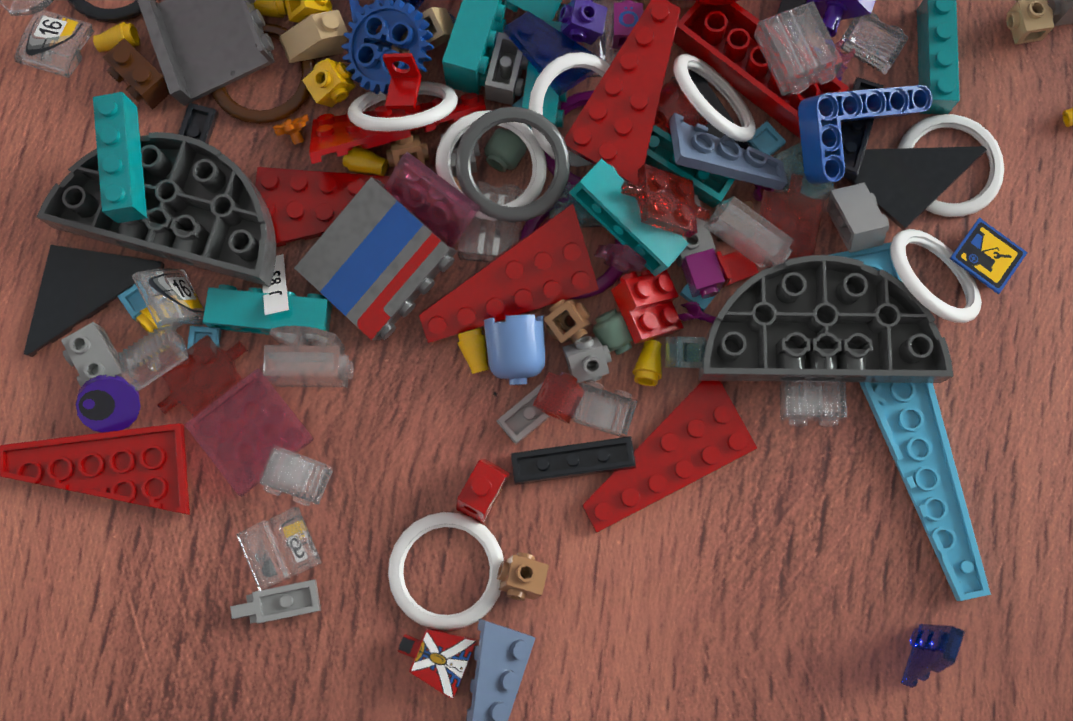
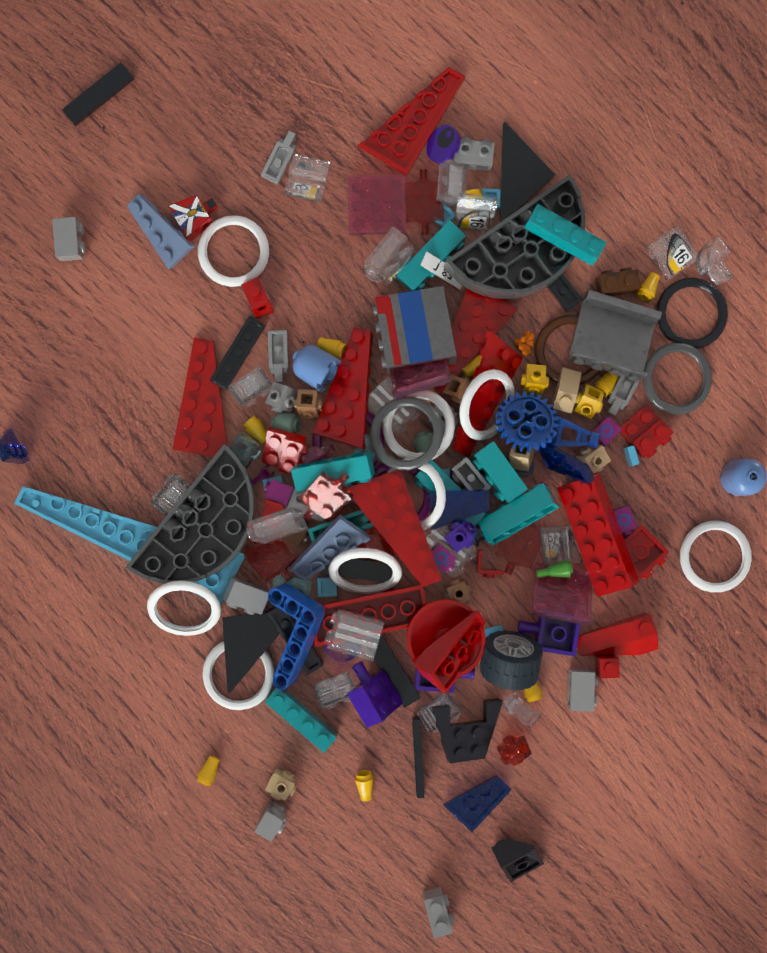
camera: 125 degrees right, 10 degrees up
(295, 476) = (334, 209): clear brick -> none
(404, 82) = (494, 409): red bracket -> none
(522, 577) = (194, 286): medium nougat brick -> none
(559, 396) = (271, 366): clear red brick -> none
(988, 255) = (174, 649): piece -> none

